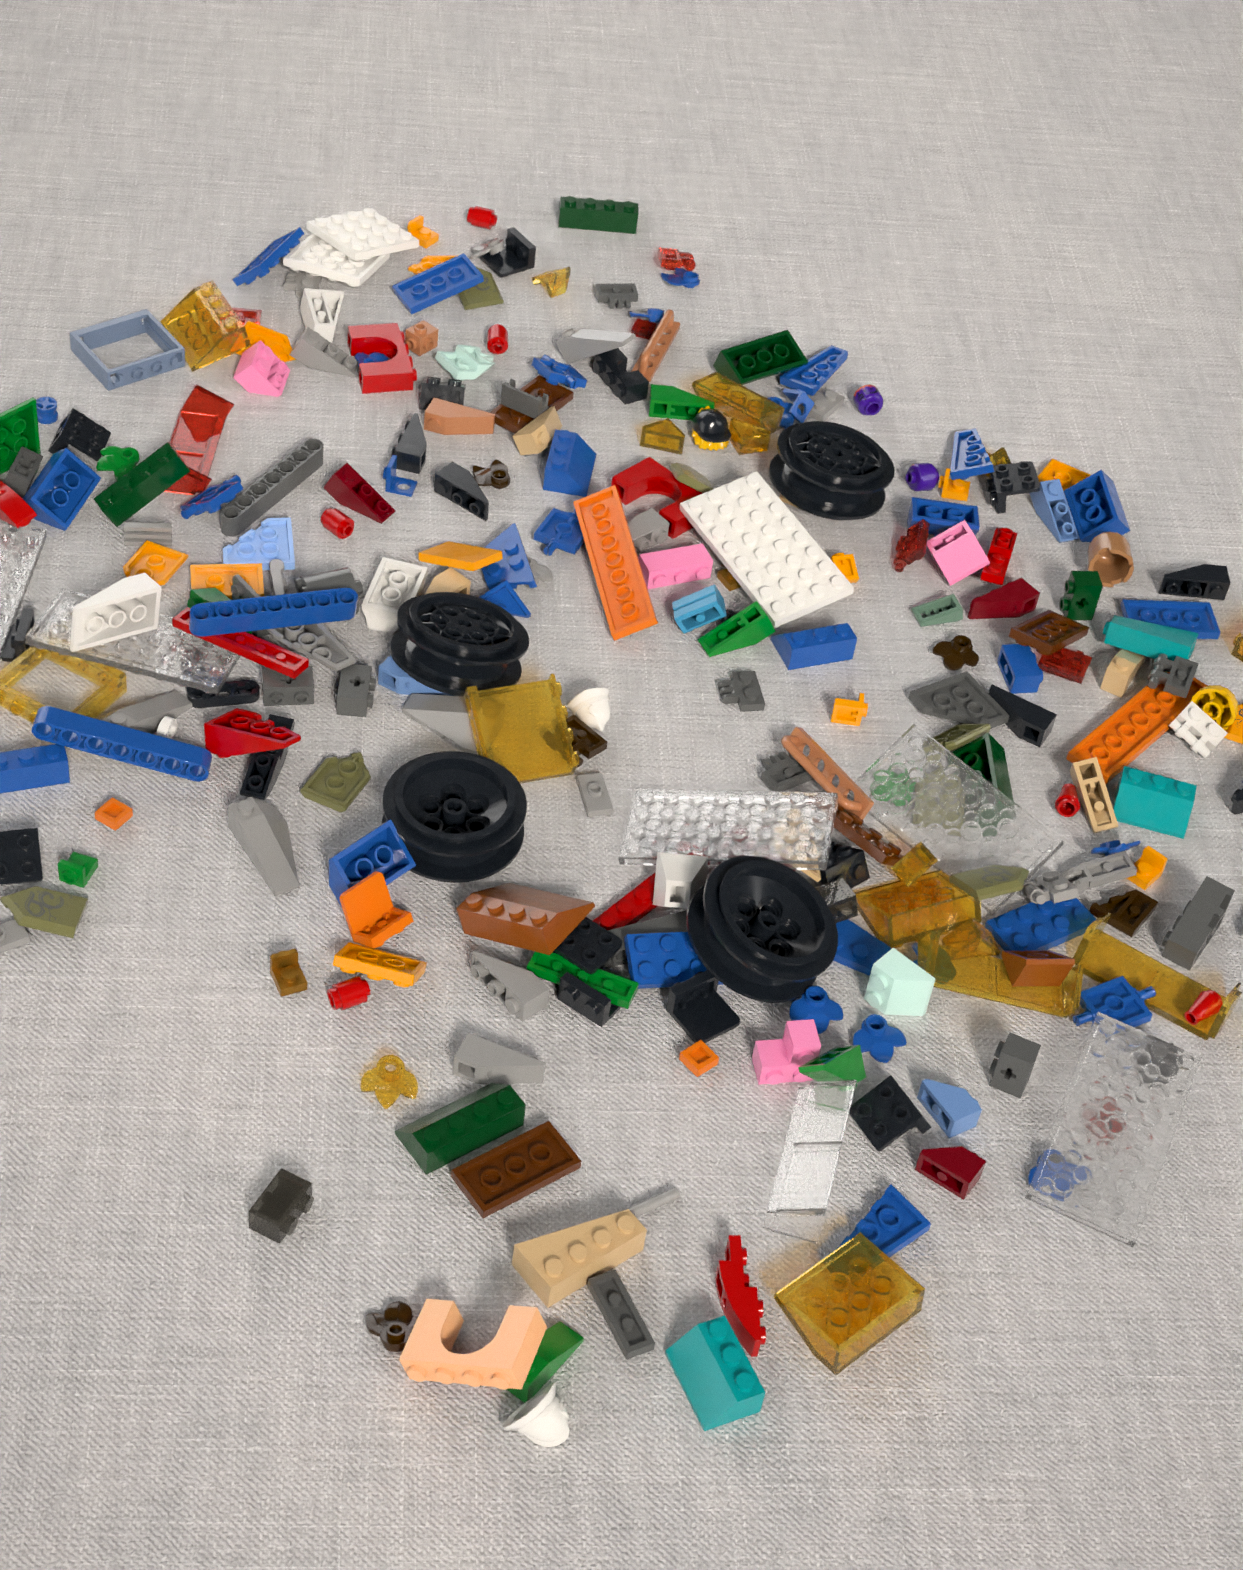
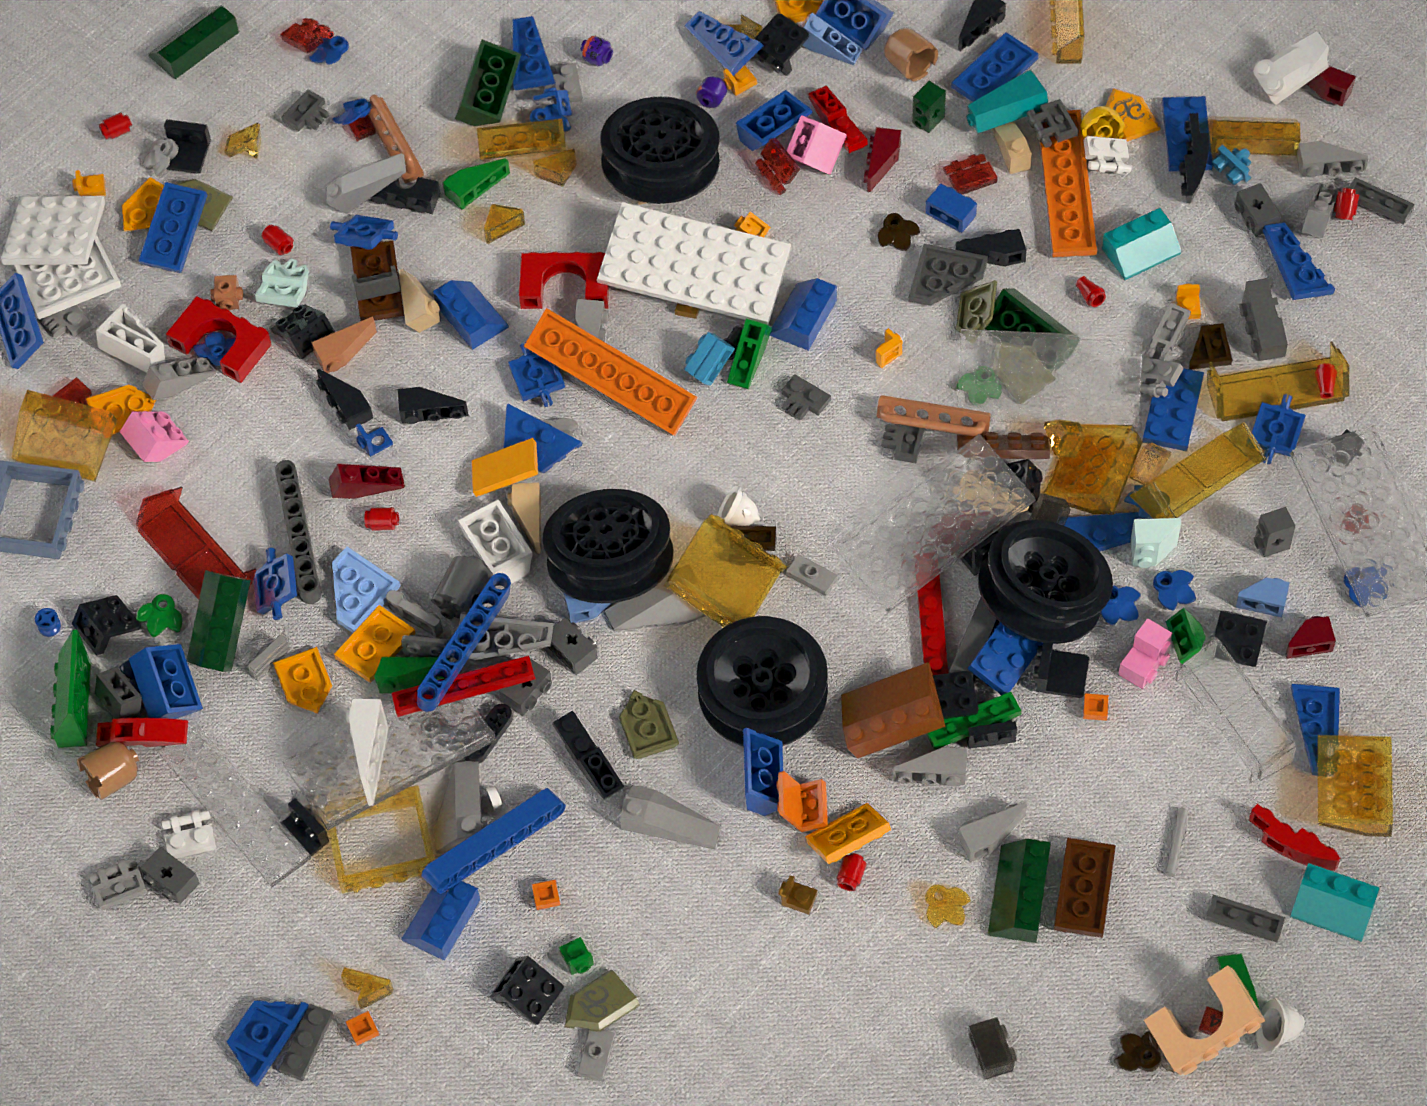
camera: 35 degrees left, 15 degrees up
(245, 733) = (557, 754): red wedge -> none
(494, 476) = (424, 372): dark brown plate -> none
(507, 598) = (569, 475): blue tile -> none
(567, 1258) = (1184, 909): tan wedge -> none
(676, 566) = (647, 331): bright pink brick -> none
(678, 879) = (950, 594): white slope -> none
(691, 477) = (570, 244): olive tile -> none
(710, 429) = (525, 184): black hair -> none
(950, 608) = (855, 192): sand green slope -> none
(990, 881) = (1128, 409): olive tile -> none
(1036, 967) = (1209, 444): dark orange slope -> none
(1048, 632) = (942, 160): reddish brown plate -> none
(1093, 794) = (1103, 273): tan slope -> none
(1113, 847) = (1160, 306): blue plate -> none

